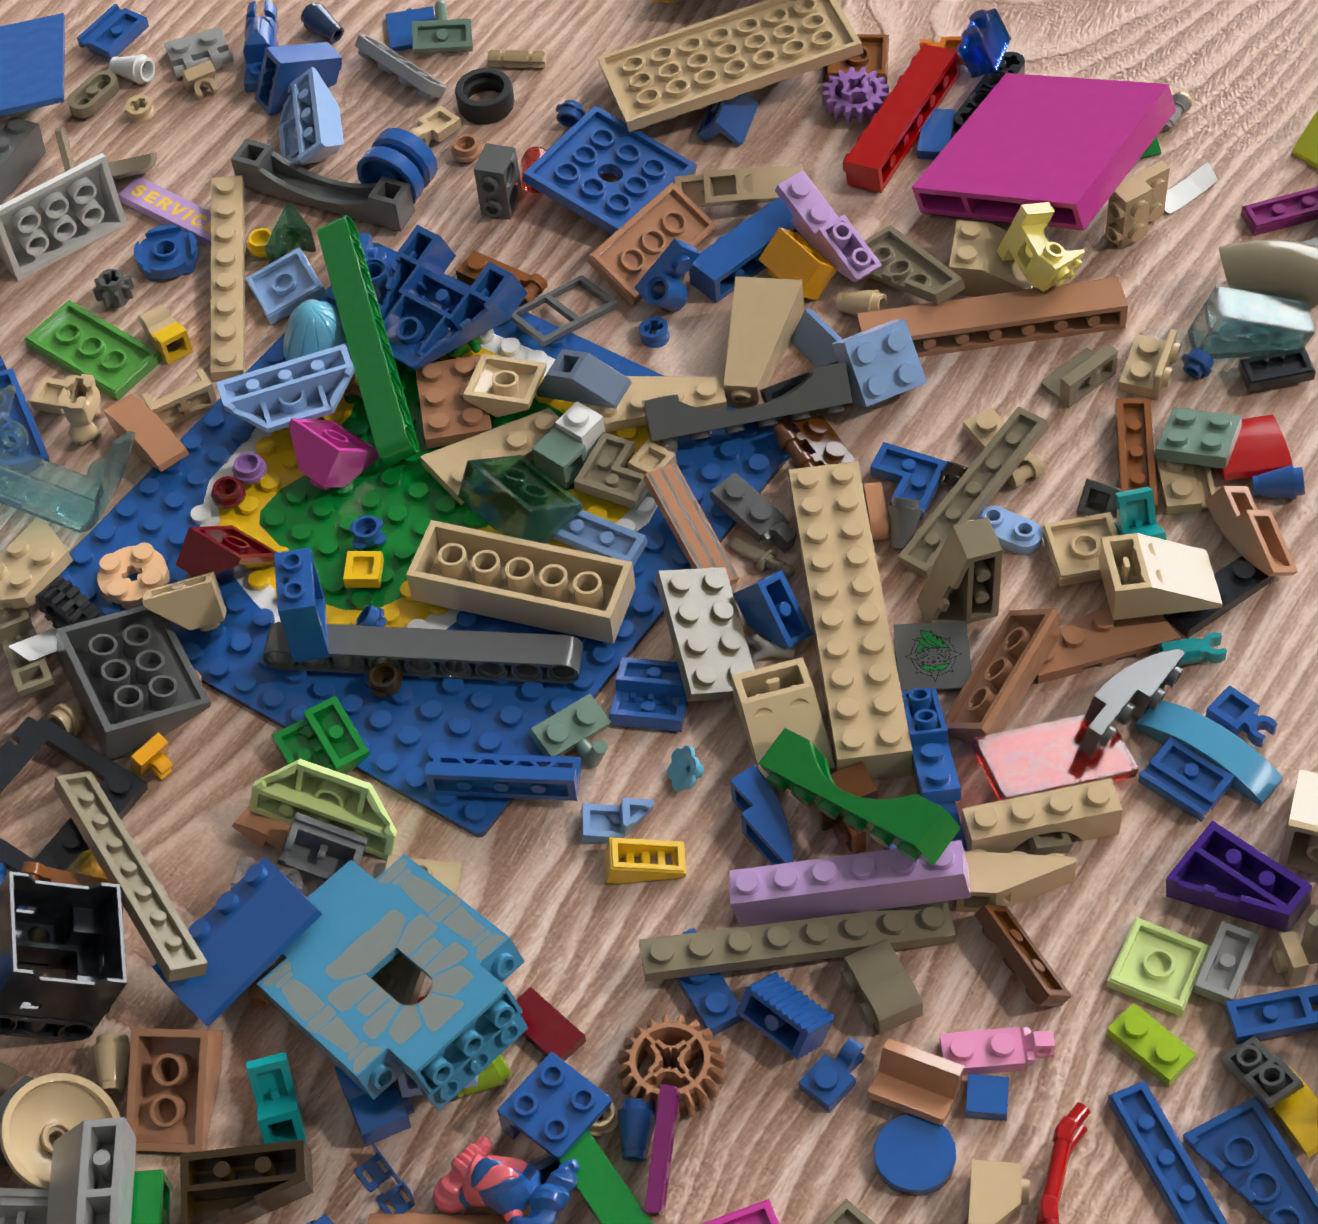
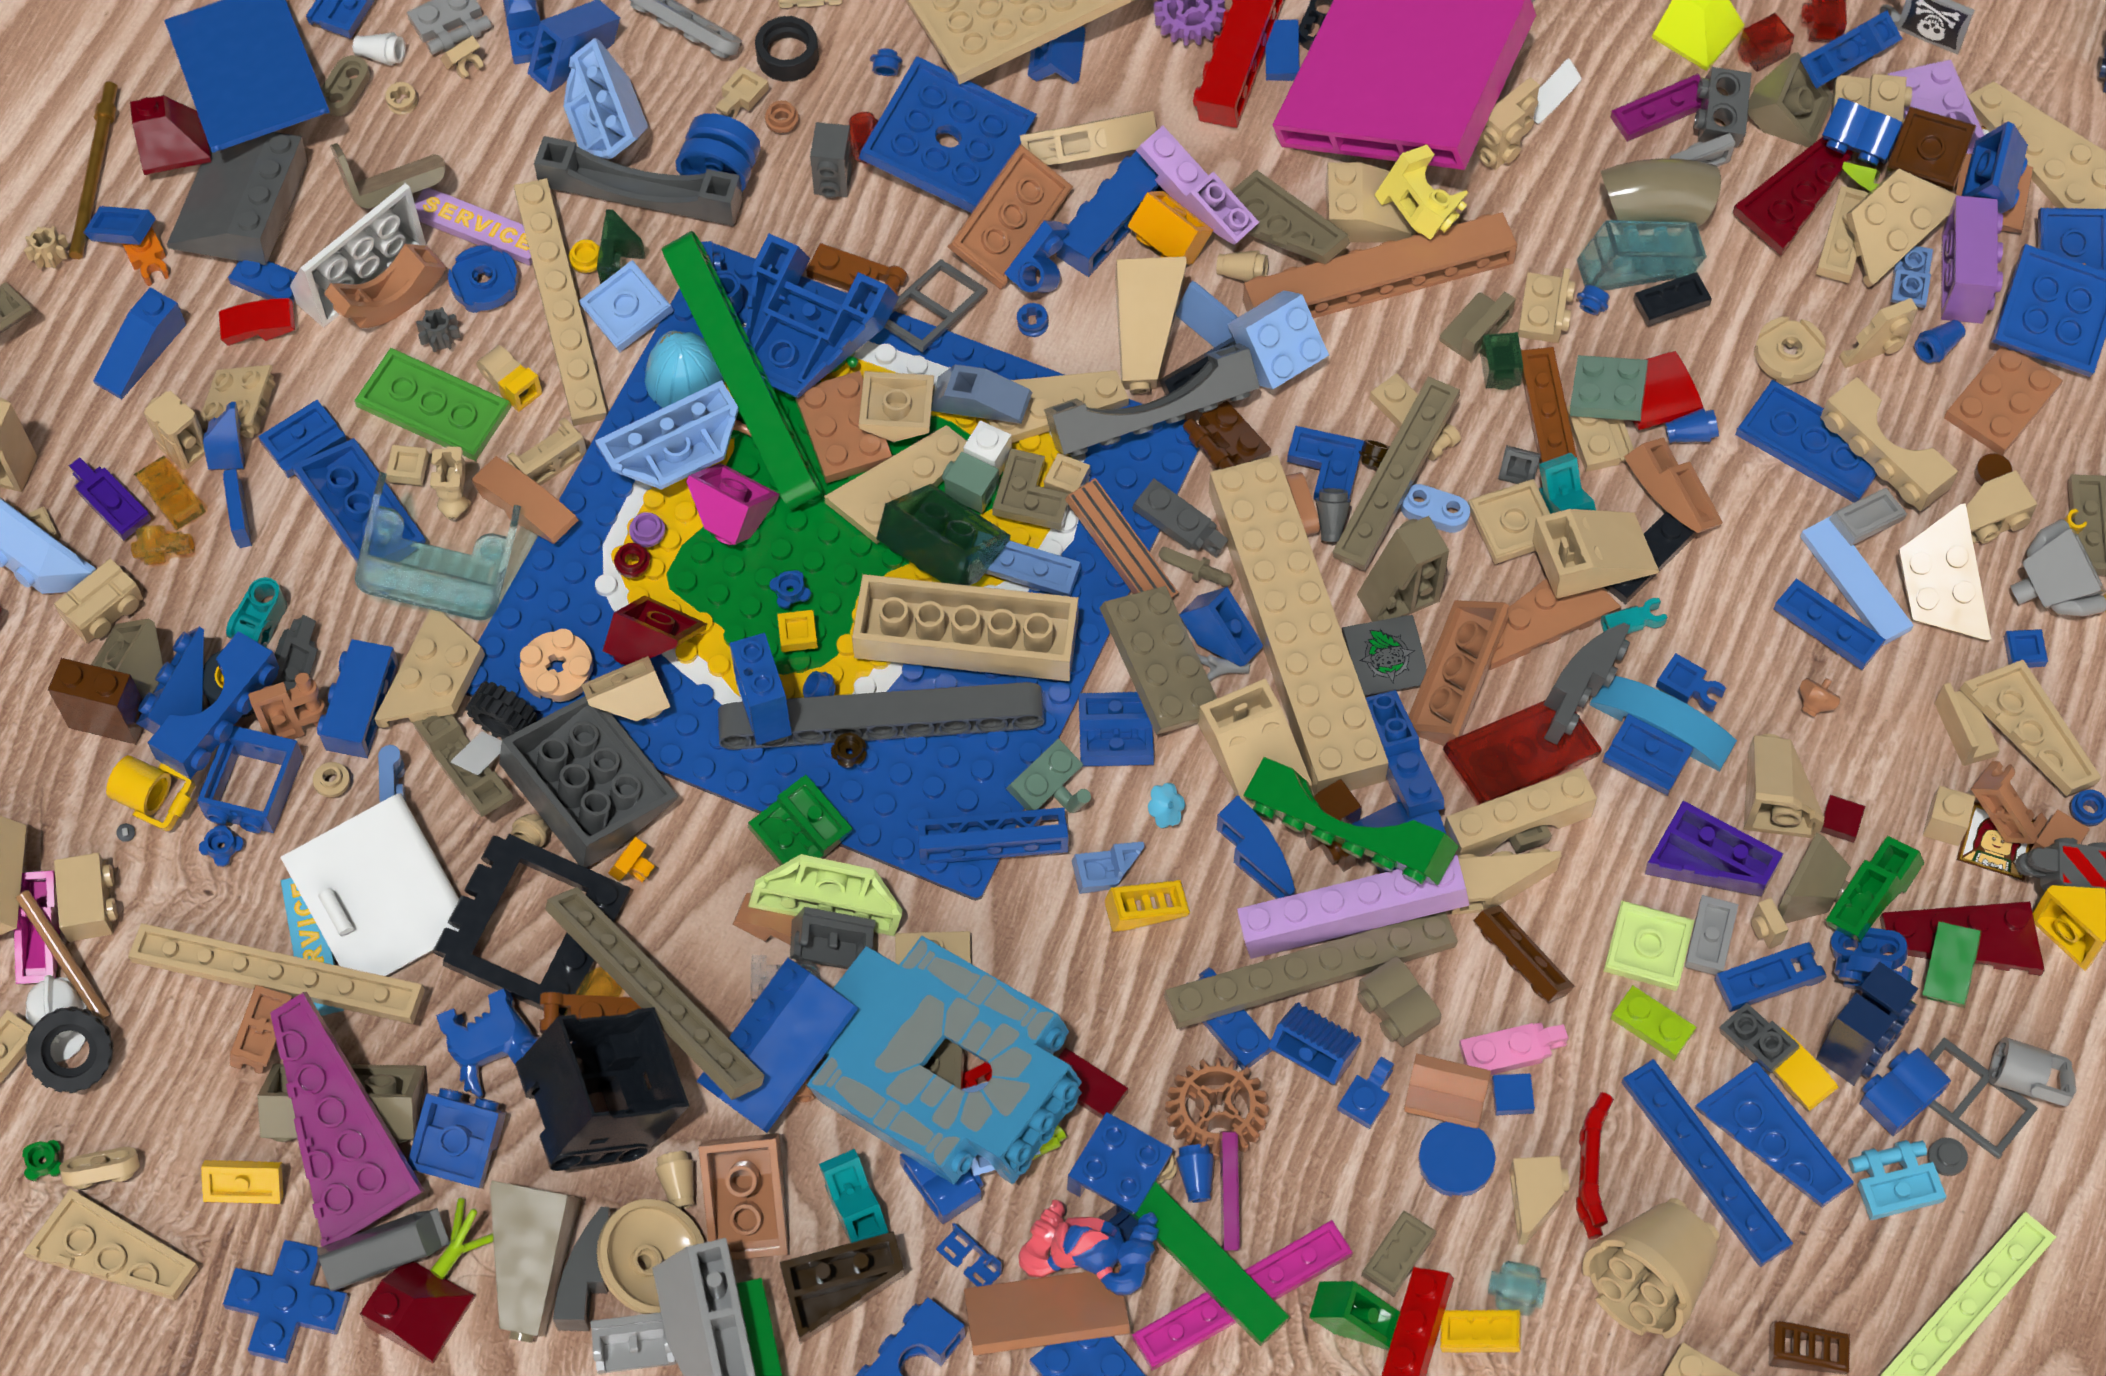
camera: 15 degrees left, 10 degrees up
(81, 257) = (392, 292): none -> nougat arch
(1097, 405) = (1501, 360): none -> clear green brick

